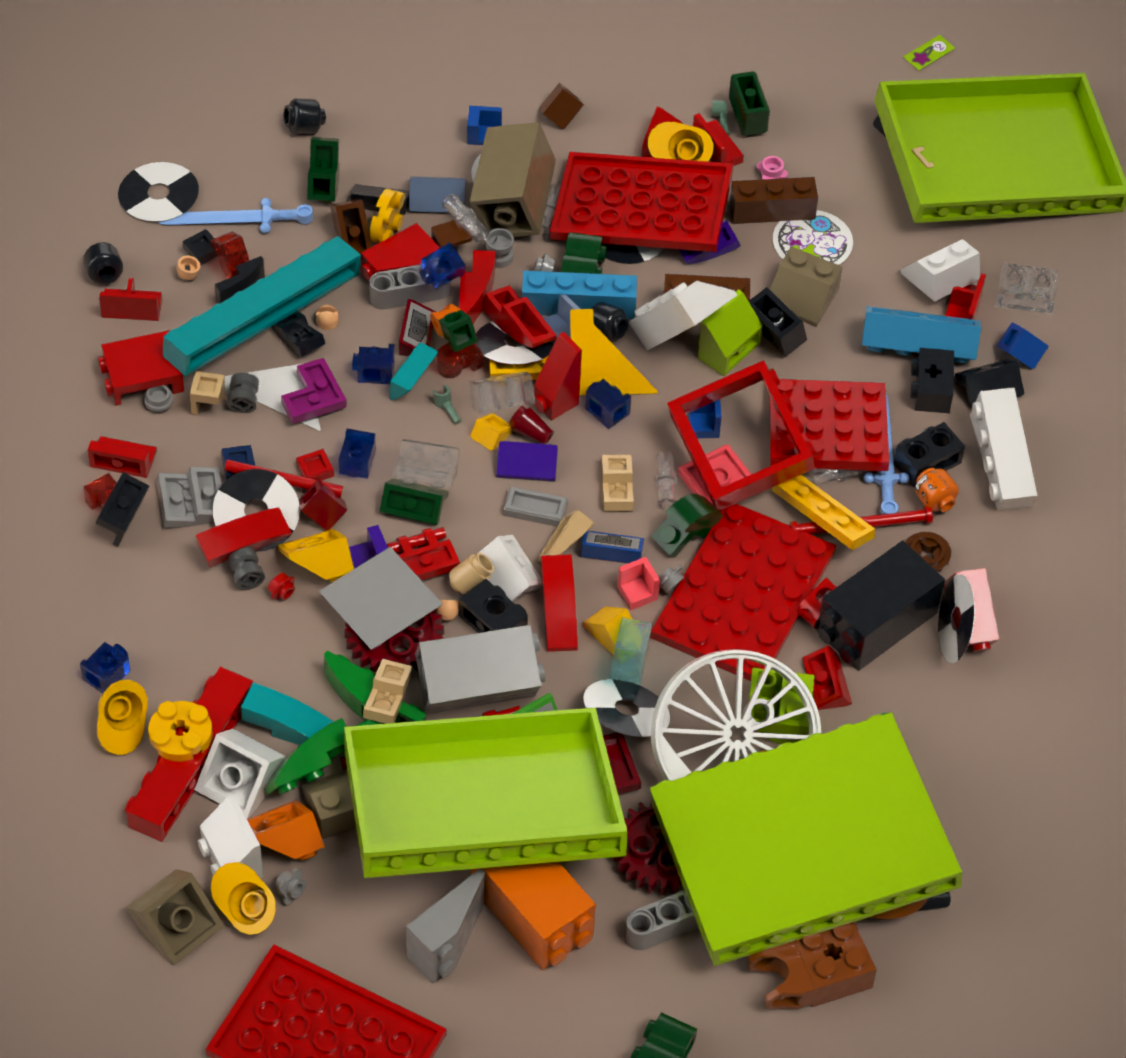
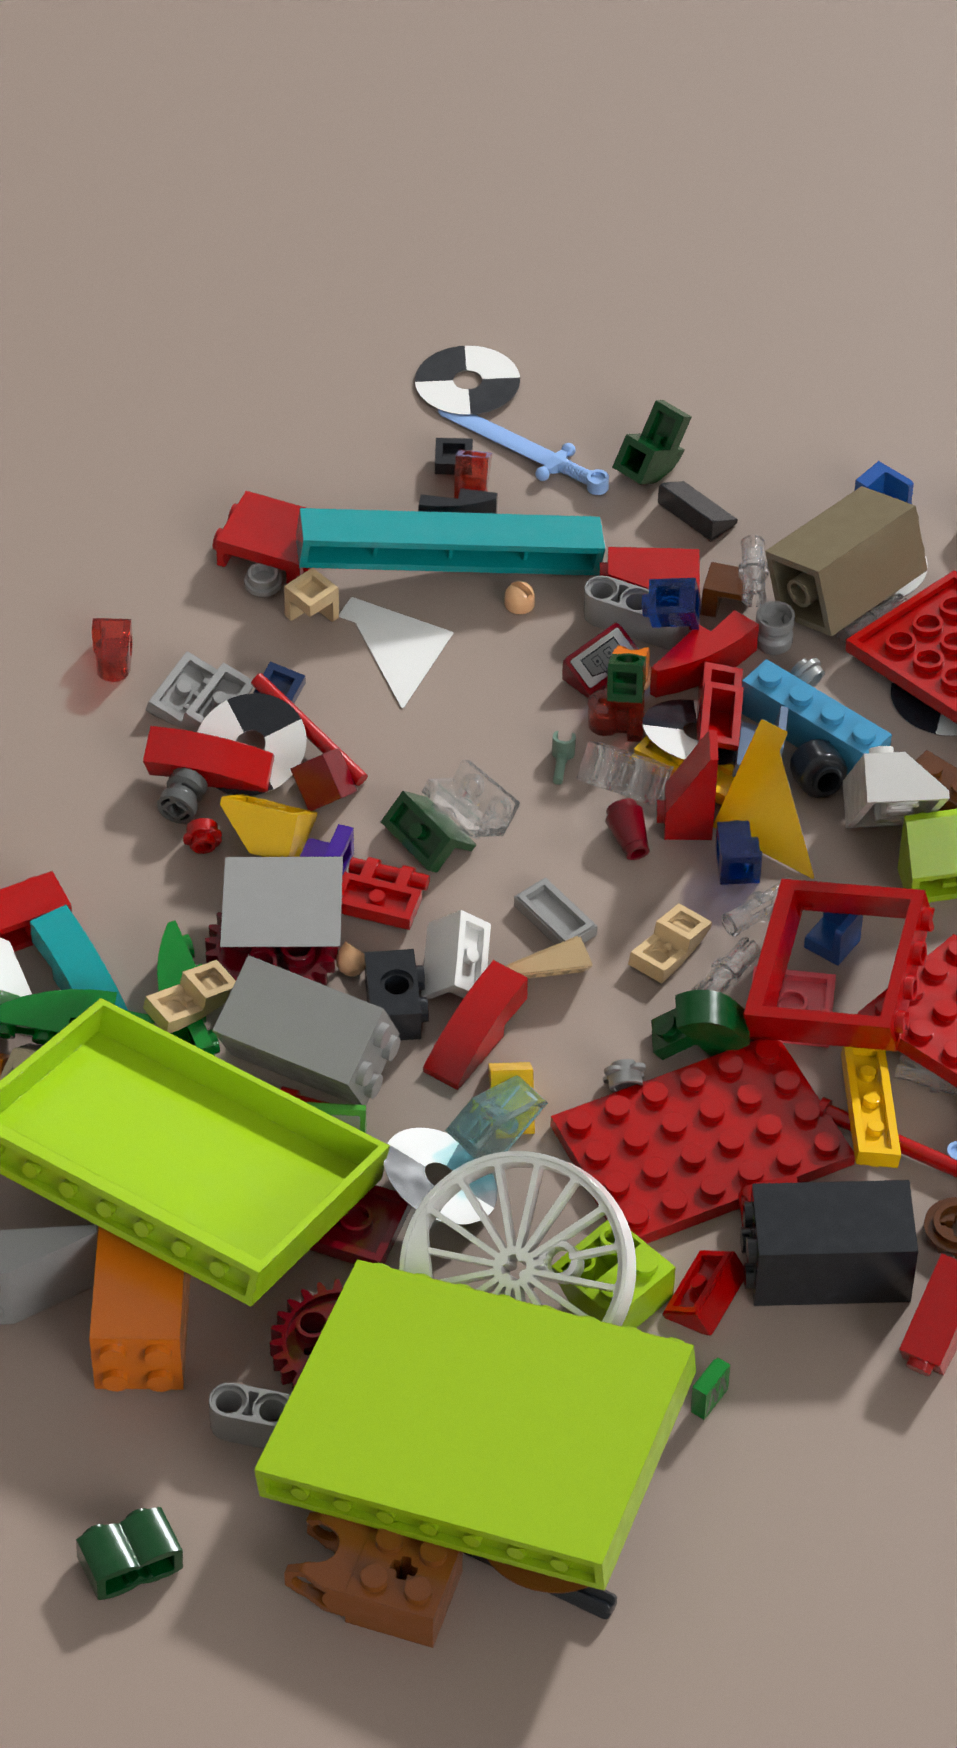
camera: 40 degrees right, 5 degrees down
(103, 263) = (334, 416): black head -> none
(121, 456) = (170, 615): red panel -> none
(122, 506) = (112, 661): black panel -> none
(130, 303) = (326, 471): red panel -> none
(194, 267) = (411, 465): light nougat hinge -> none
(243, 389) = (351, 621): dark grey wheel -> none
(298, 334) = (471, 597): black slope -> none
(304, 116) = (690, 382): black head -> none
(315, 465) = (359, 739): red tile -> none
(319, 395) = (427, 671): magenta plate -> none
(352, 224) = (630, 516): reddish brown slope -> none
(357, 453) = (411, 750): clear blue brick -> none
(374, 364) = (520, 671): clear blue brick -> none
(388, 216) = (674, 523): yellow plate -> none
(411, 370) = (548, 696): teal slope -> none
(429, 192) = (750, 520): sand blue panel -> none
(470, 573) = (408, 932): tan brick -> none
(490, 431) = (582, 810): yellow slope -> none
(527, 461) = (590, 863): dark purple slope -> none
(583, 254) = (861, 684): dark green brick -> none
(611, 547) = (597, 1005): blue slope -> none
(638, 583) = (583, 1057): coral panel -> none
(648, 428) = (741, 917): none -> clear pin
(956, 594) = (900, 1307): sticker -> none

